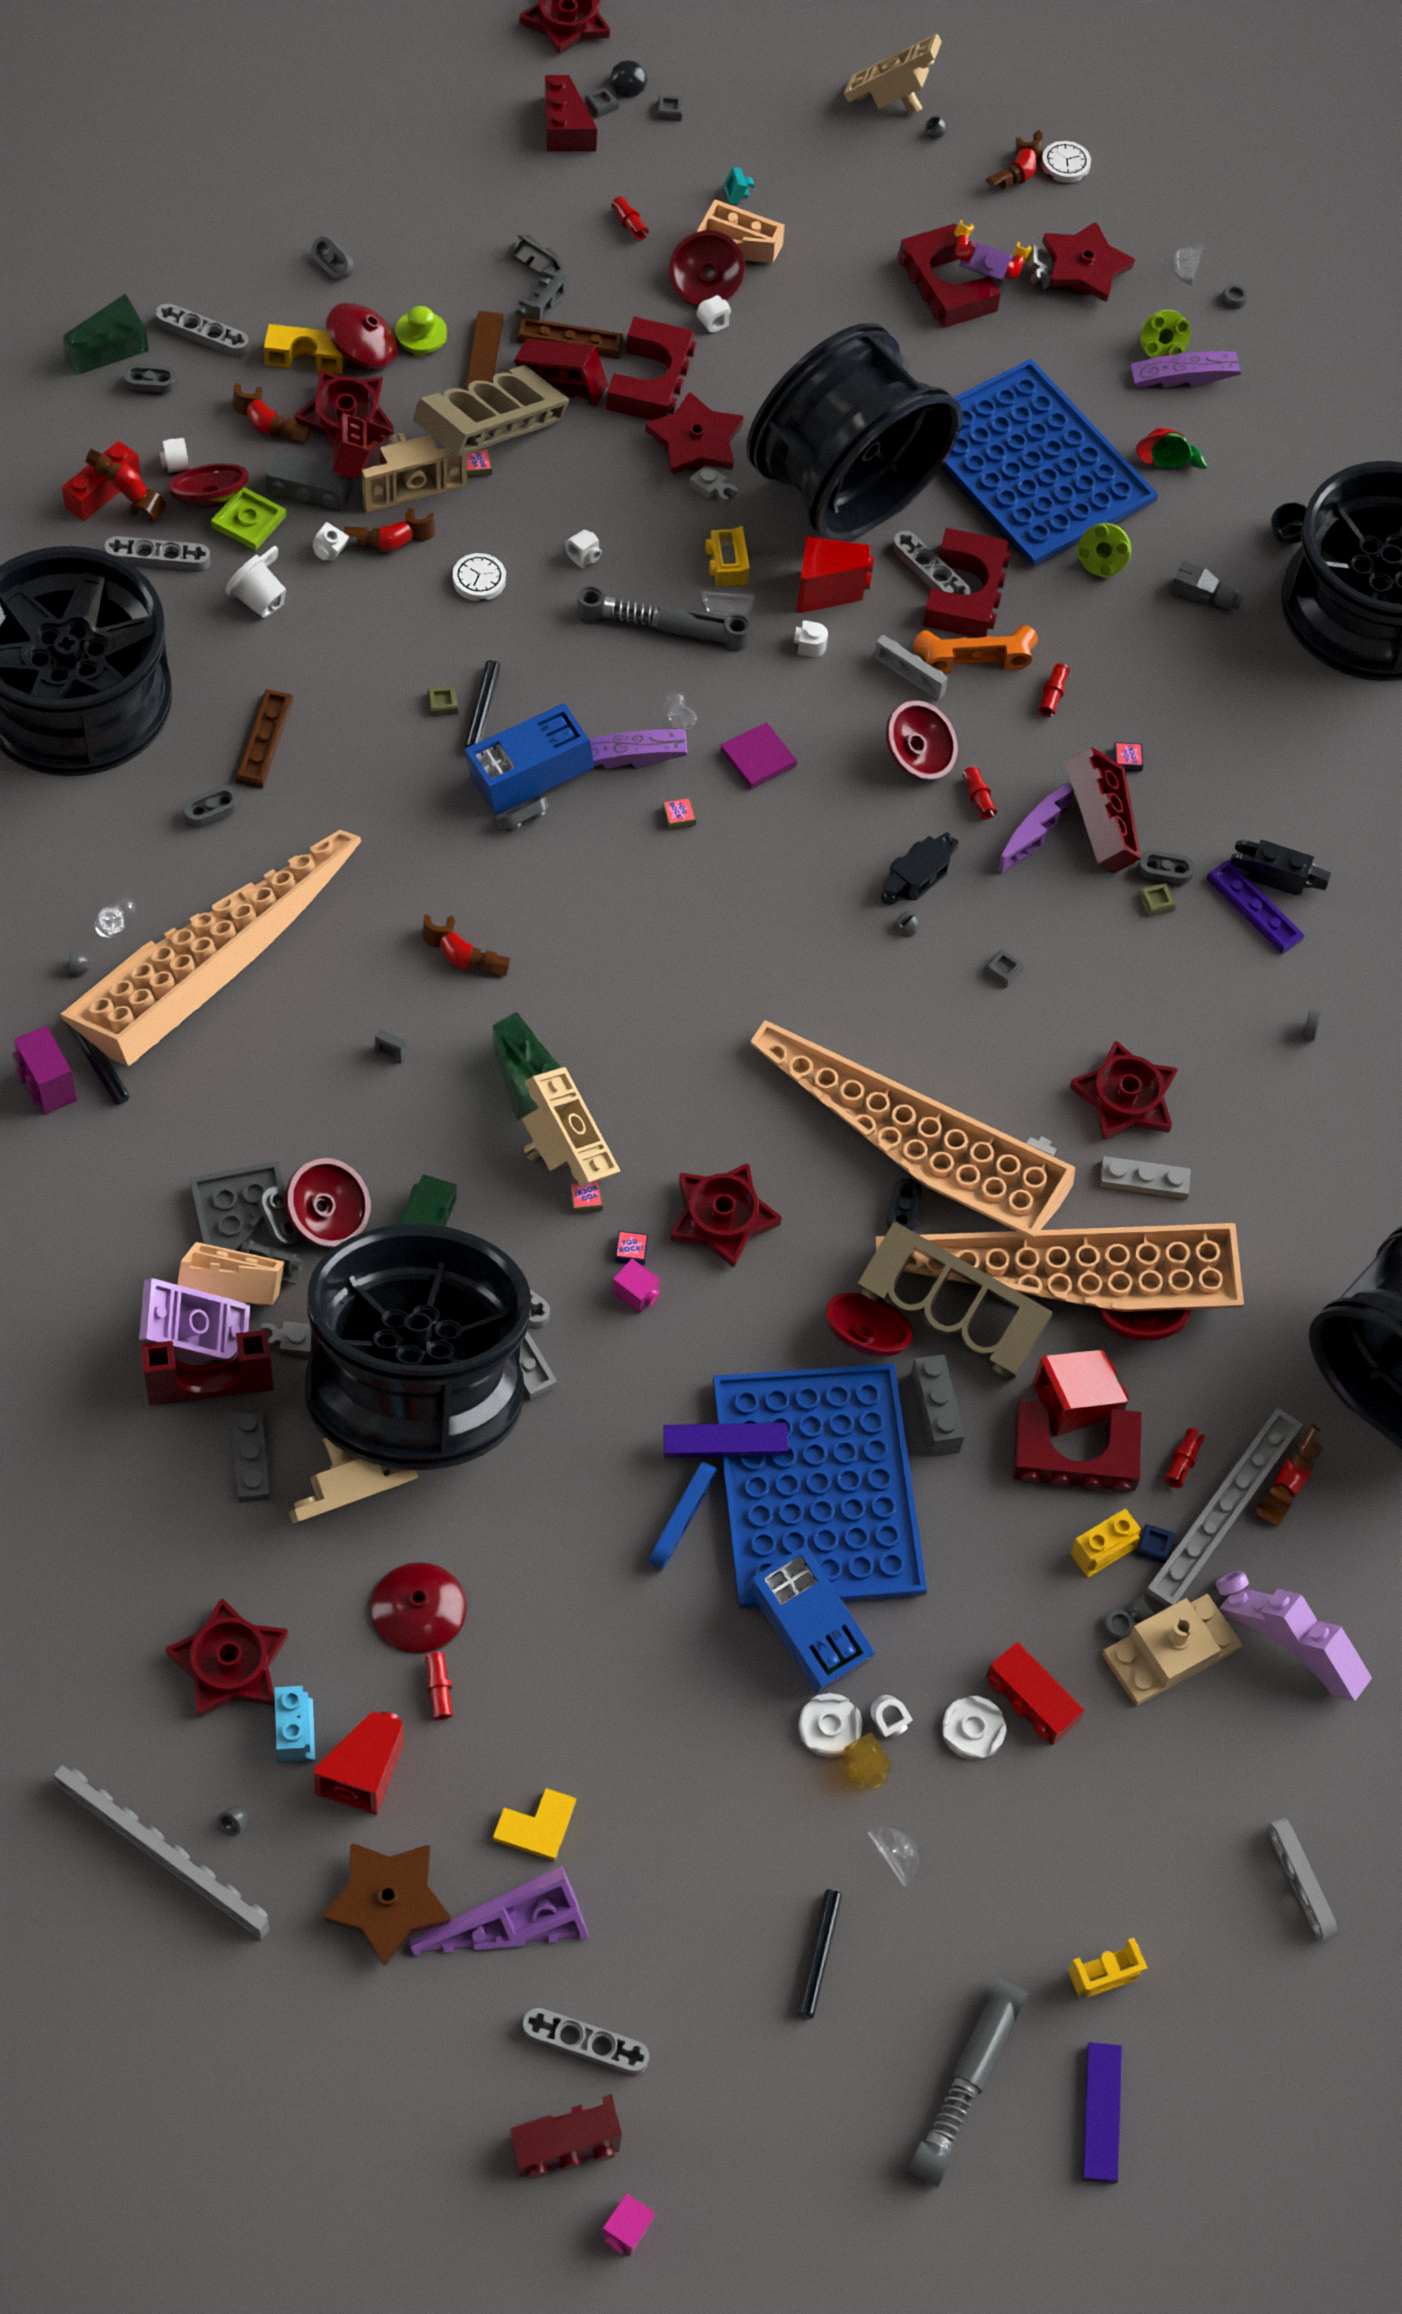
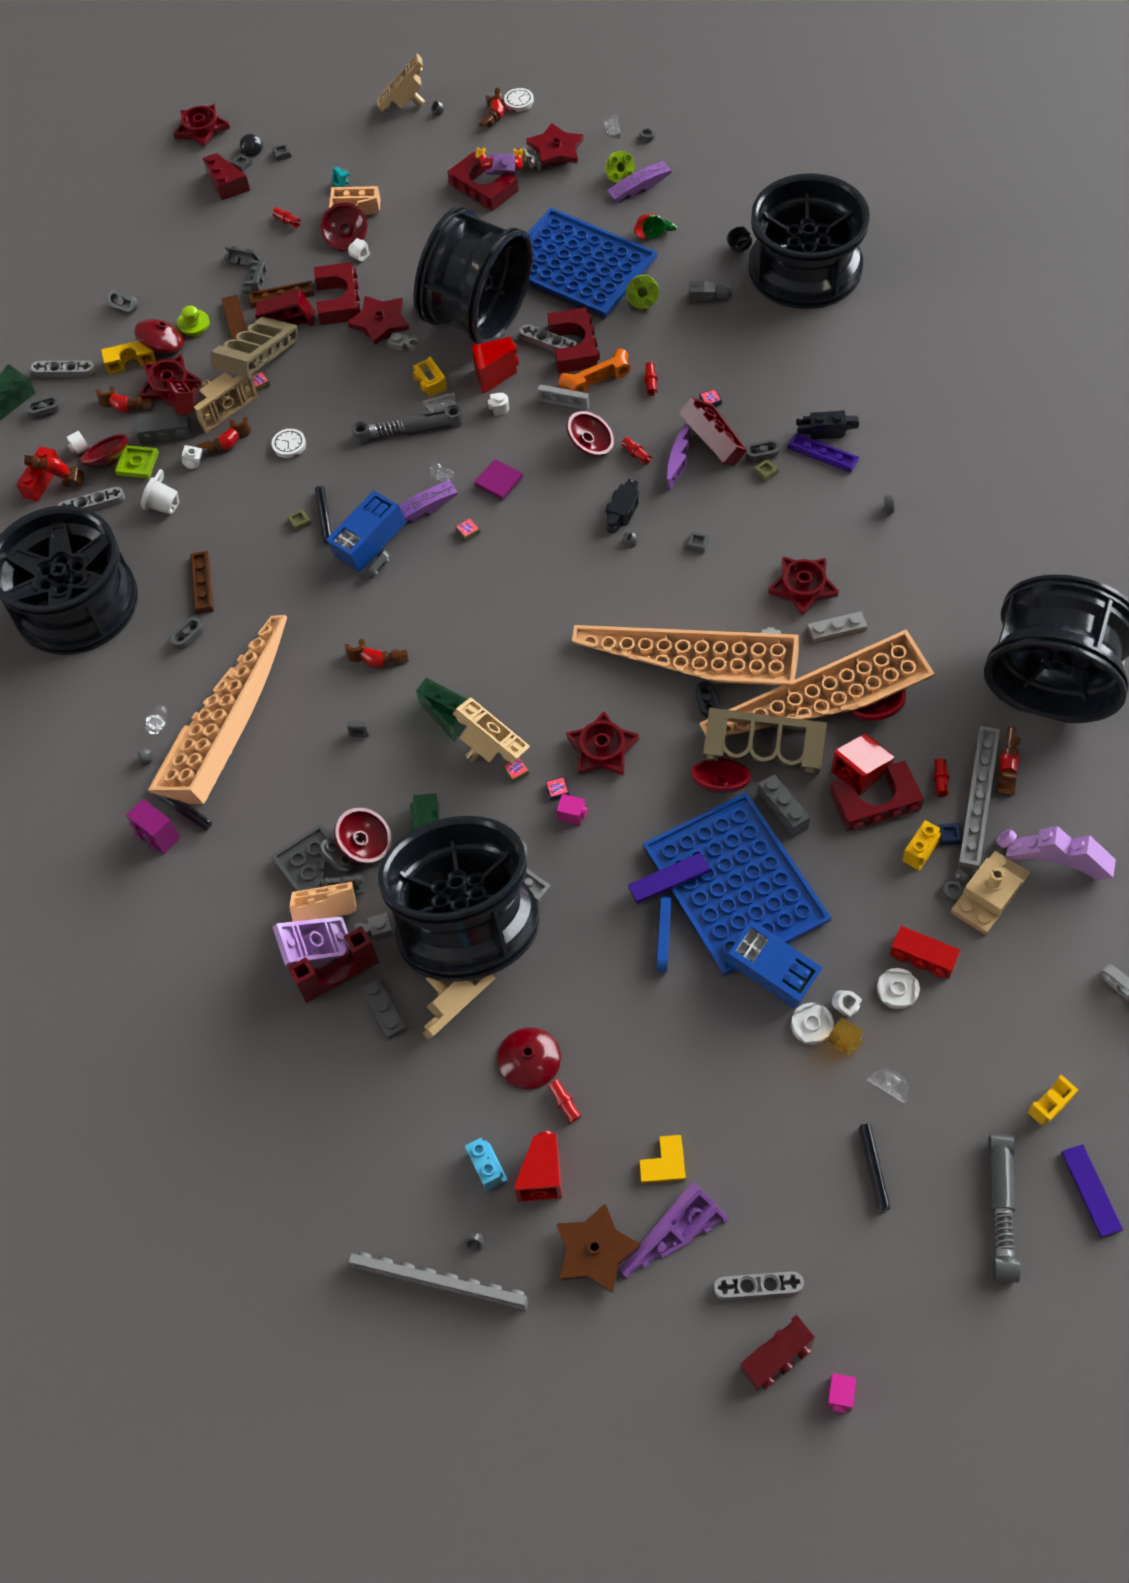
camera: 10 degrees left, 0 degrees up
(229, 1638) = (424, 1125): dark red plate -> none
(583, 548) = (343, 404): white plate -> none

